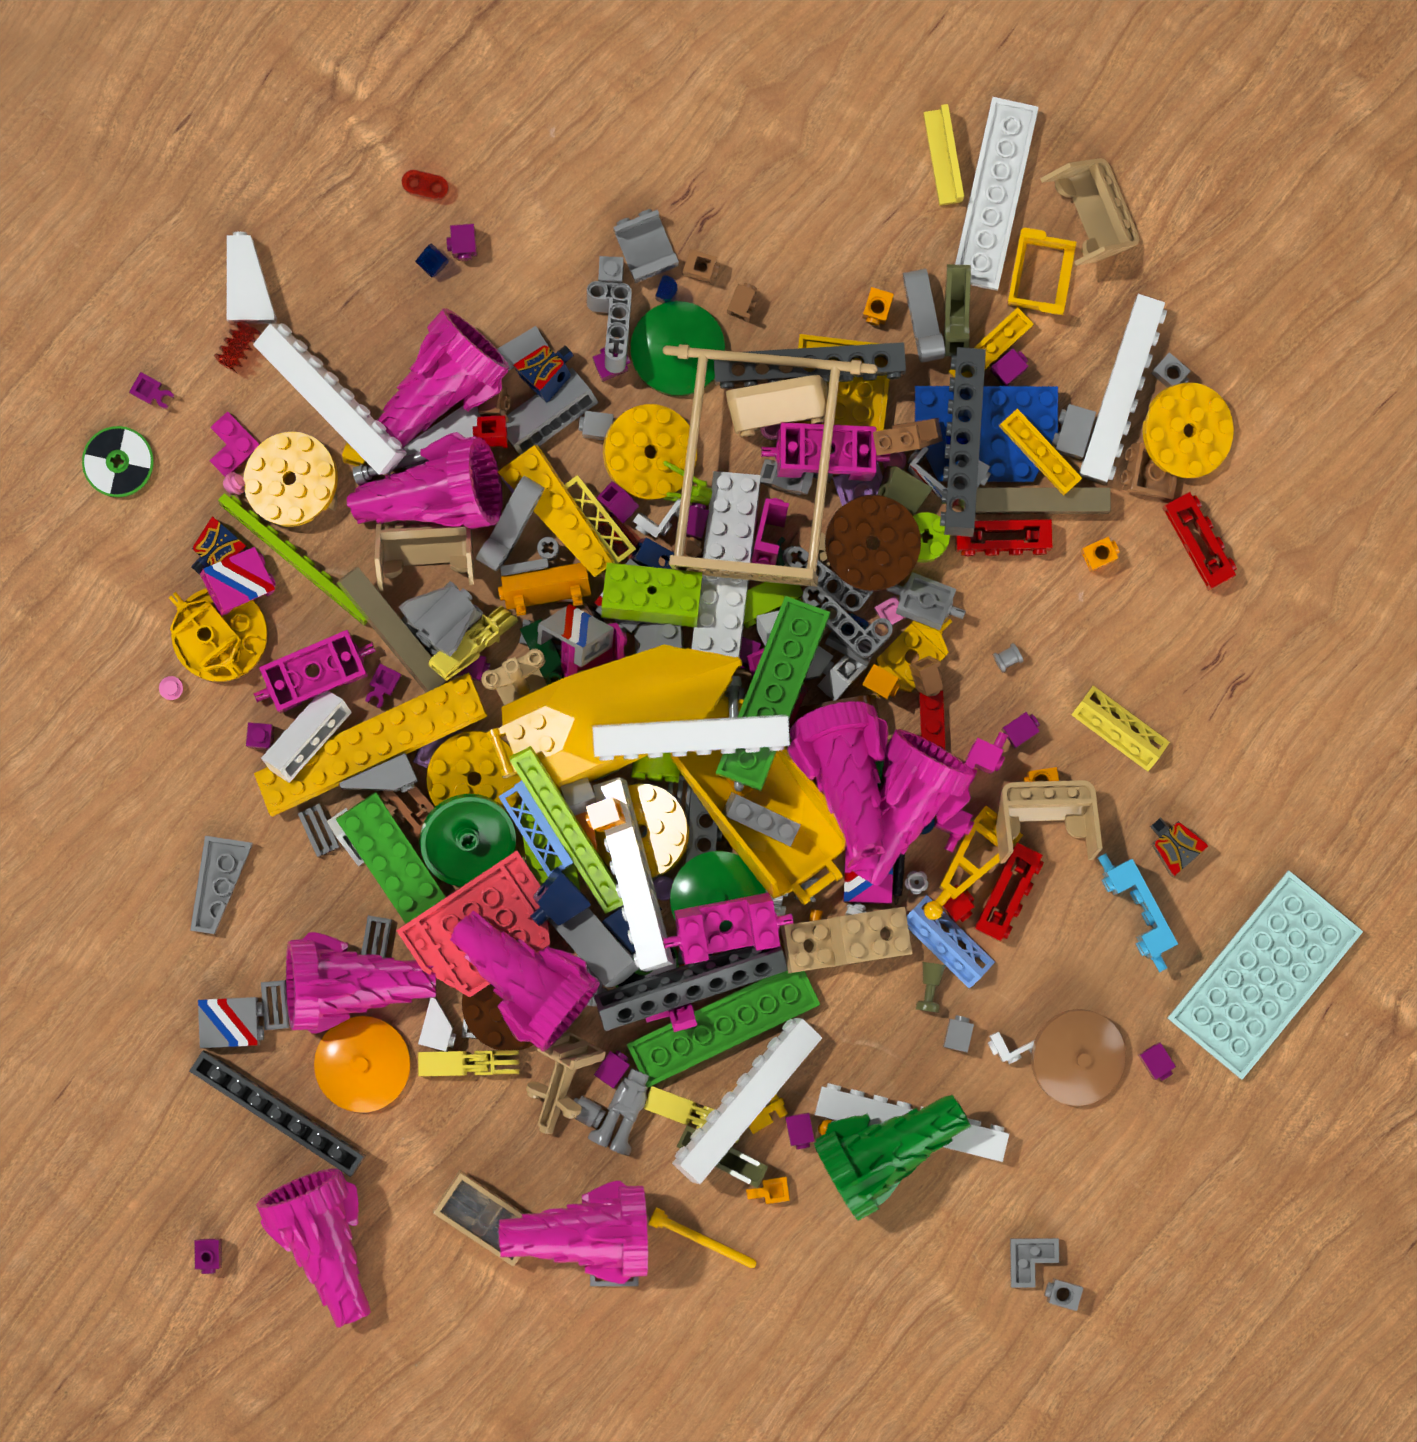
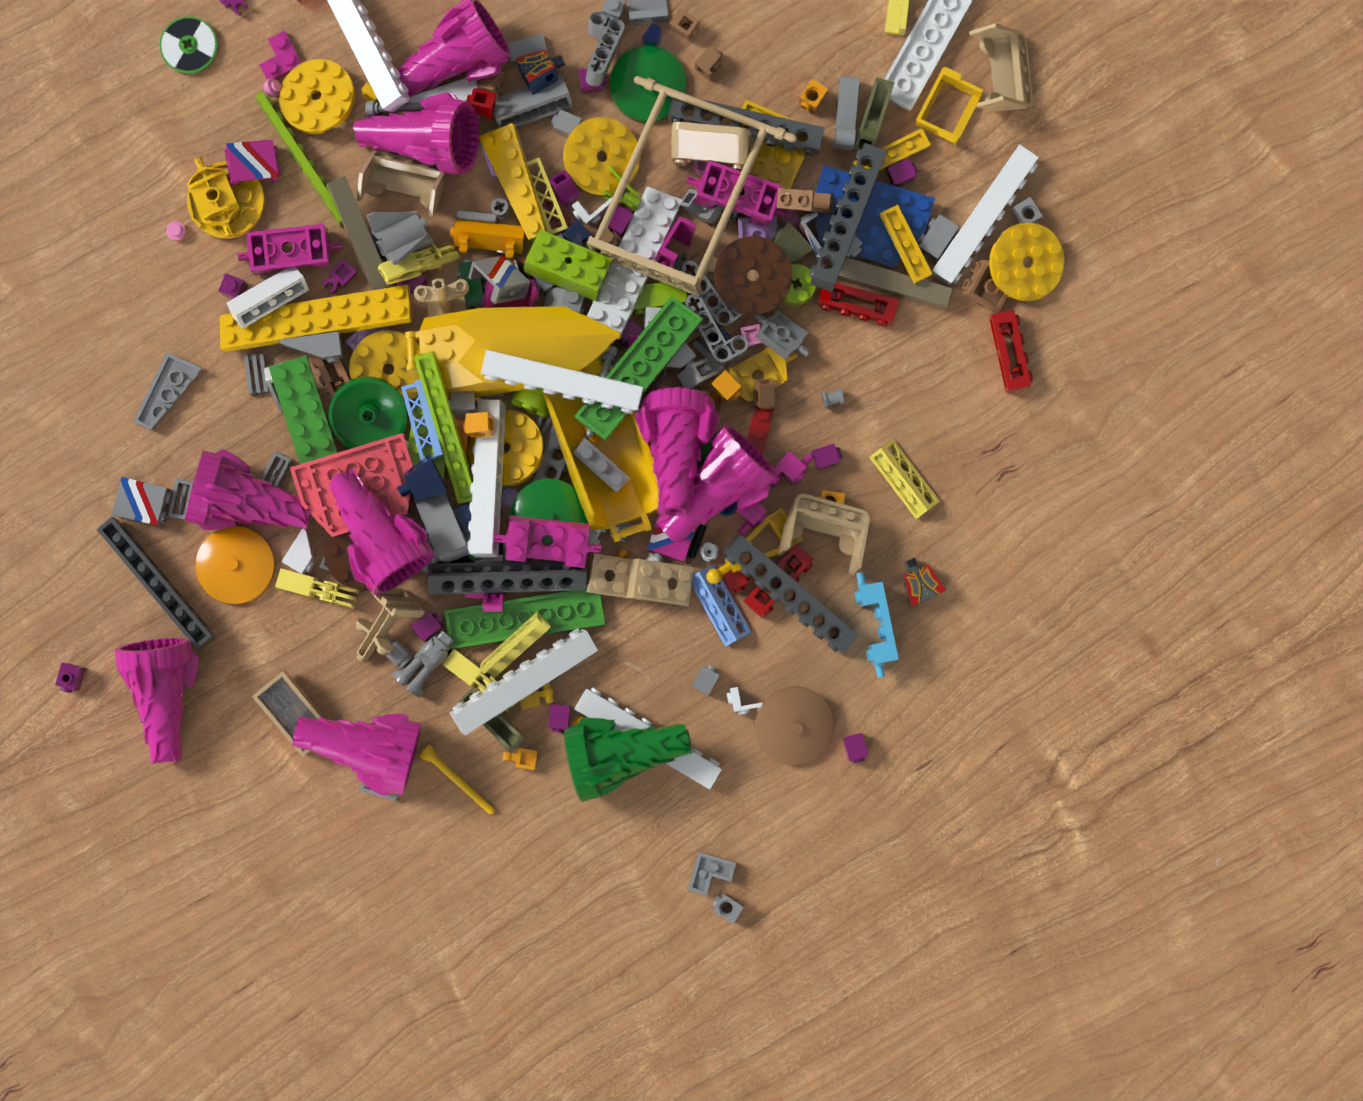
camera: 20 degrees right, 0 degrees up
(215, 545) = (243, 129): torso -> none
(511, 524) = (476, 180): light grey beam -> none
(722, 1060) = (515, 645): none -> light yellow fence
(931, 977) = (698, 629): olive piece -> none
(1093, 561) = (923, 344): light orange brick -> none
(1105, 933) = (844, 635): none -> dark grey brick
(1265, 975) = (960, 705): light aqua plate -> none

